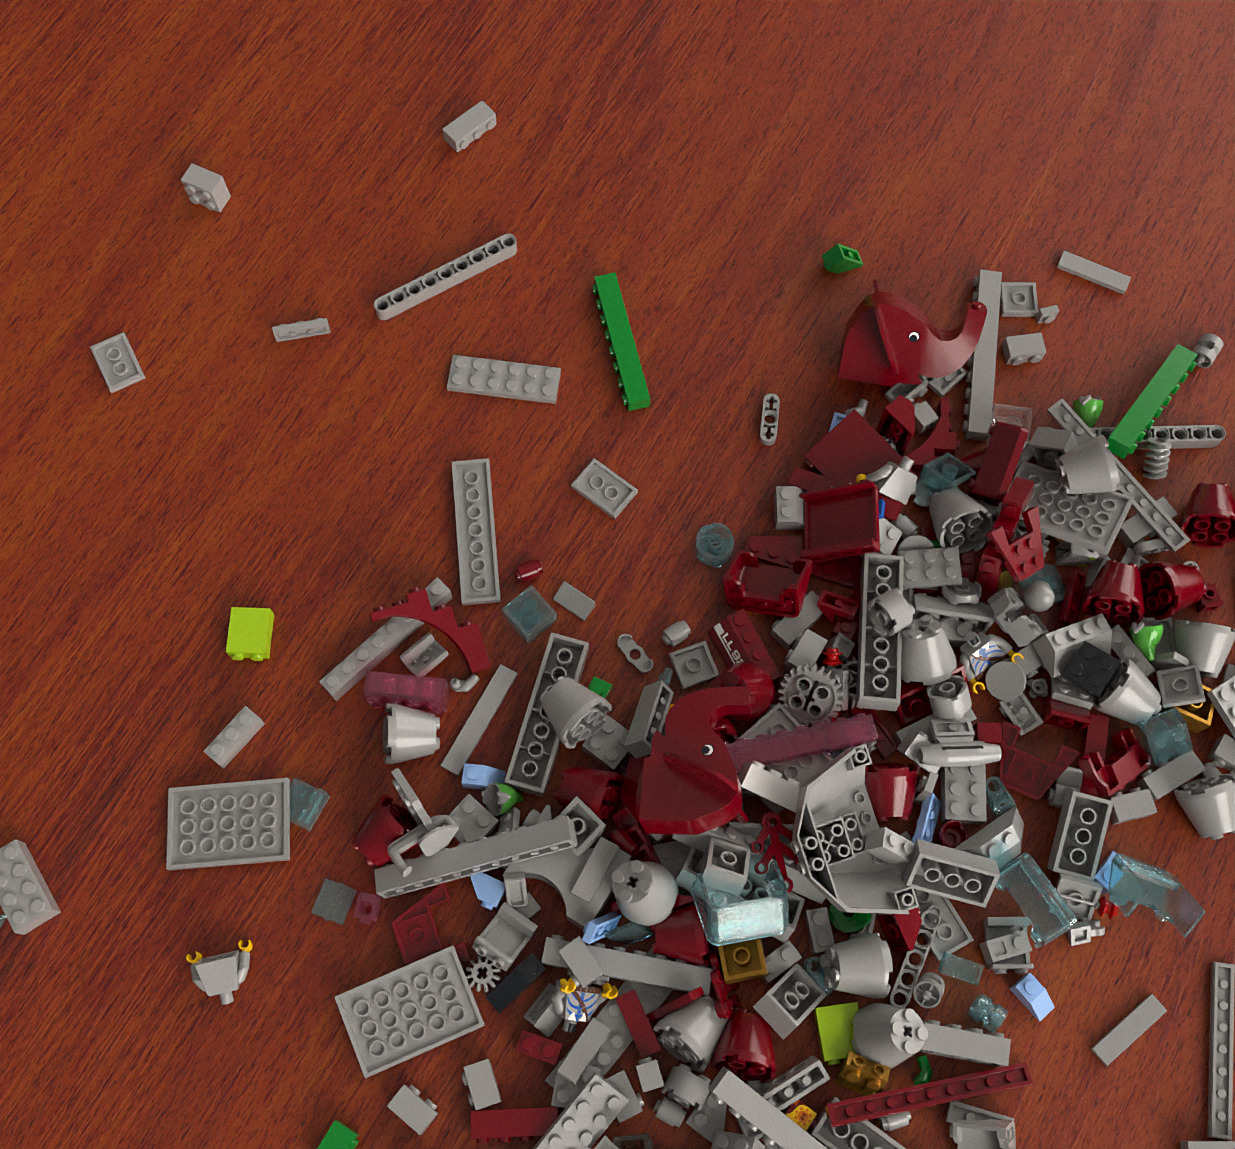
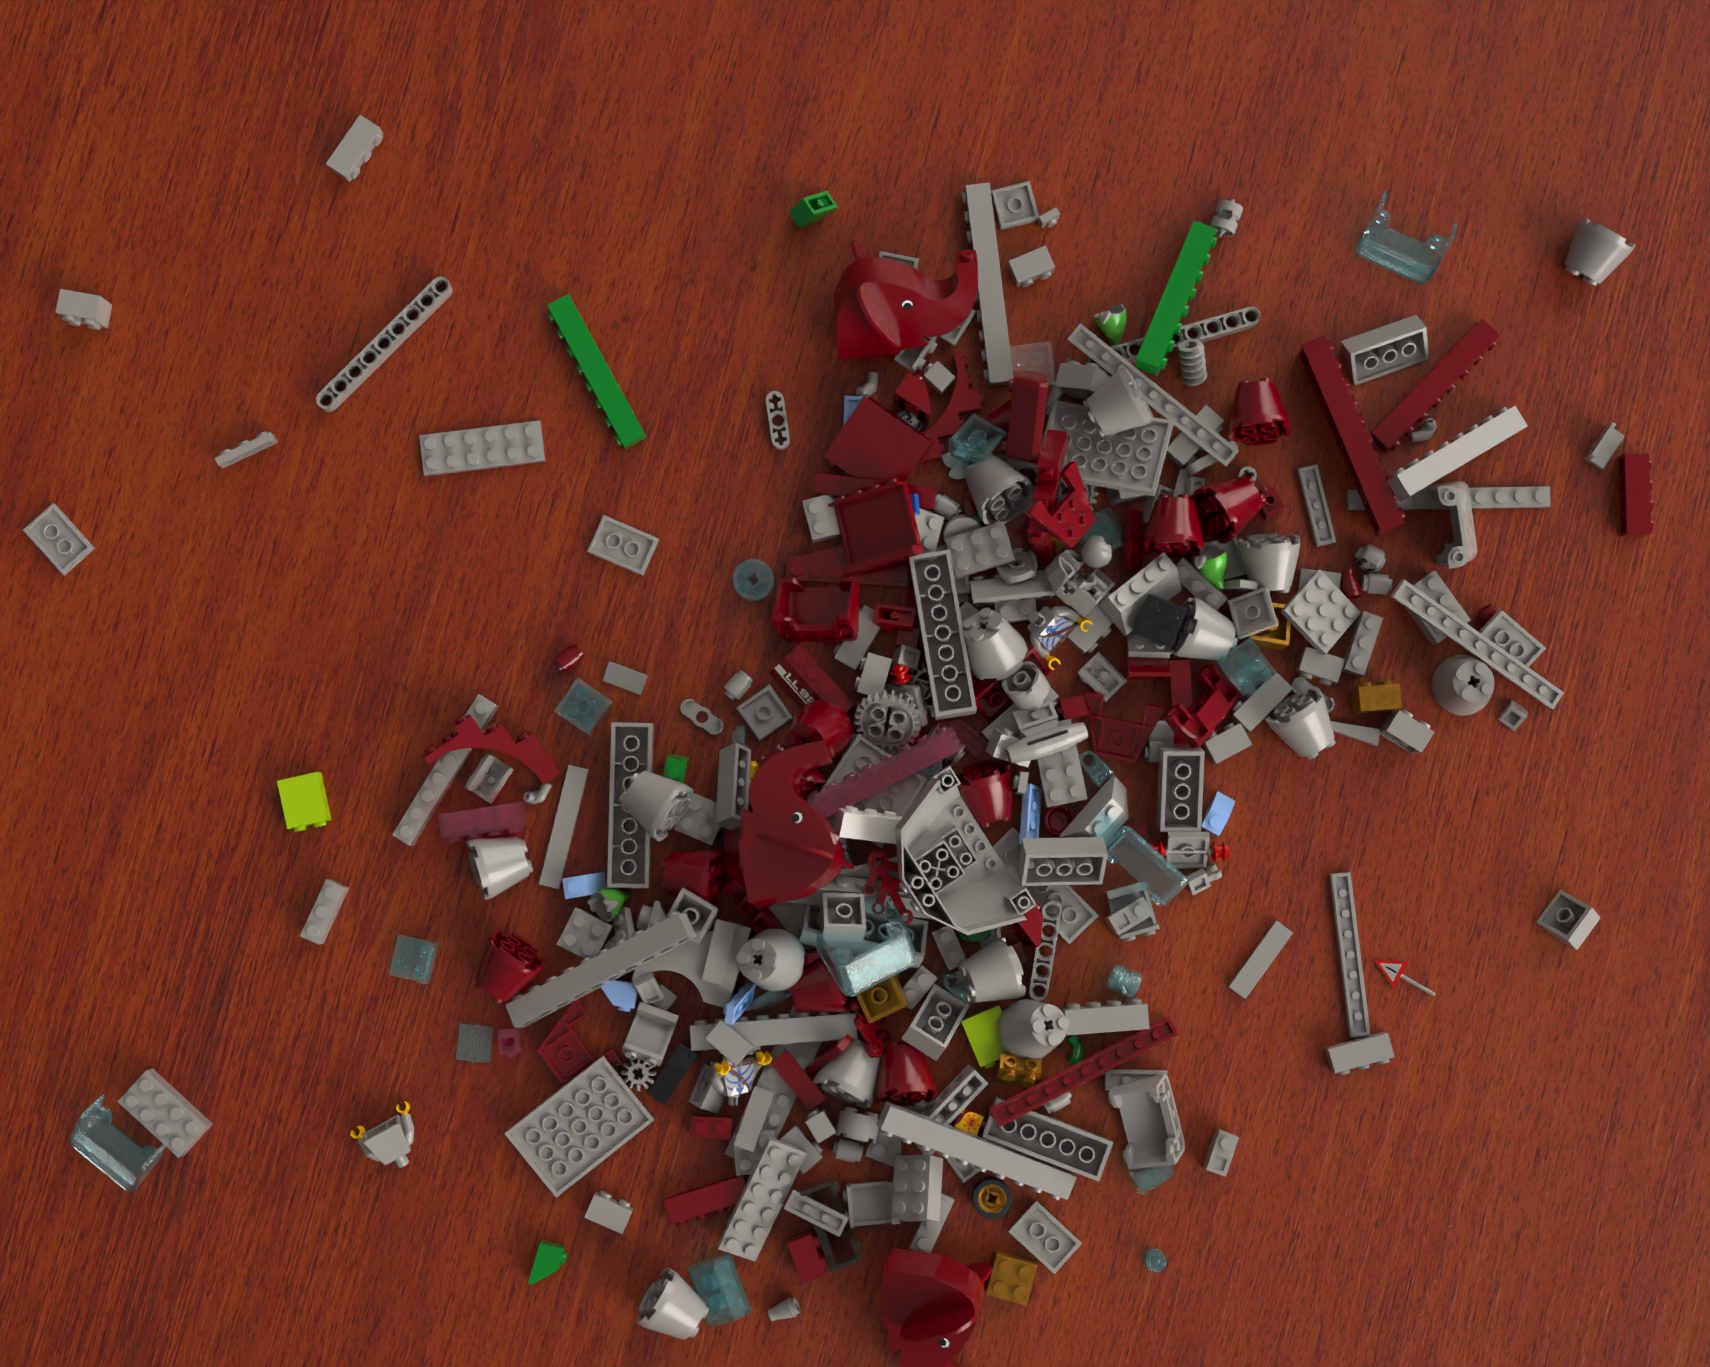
camera: 20 degrees left, 15 degrees up
(228, 824) = (348, 998): light grey plate -> none
(427, 833) = (546, 957): light grey plate -> none
(475, 532) = (502, 629): light grey plate -> none
(481, 1084) = (666, 1173): light grey brick -> none
(624, 841) = (737, 914): dark red cone -> none
(889, 846) = (997, 852): light grey brick -> none
(891, 612) = (947, 620): light grey brick -> none
(894, 480) = (921, 467): light grey torso -> none
(929, 990) = (1064, 975): light grey wheel -> none
(960, 968) = (1091, 946): clear light blue tile -> none
(1006, 680) = (1079, 650): light grey tile -> none
(1033, 996) = (1164, 953): light blue slope -> none
(1041, 683) = (1115, 639): light grey plate -> none
(1093, 272) = (1090, 150): light grey tile -> none
(1144, 884) = (1257, 819): clear light blue windscreen -> none

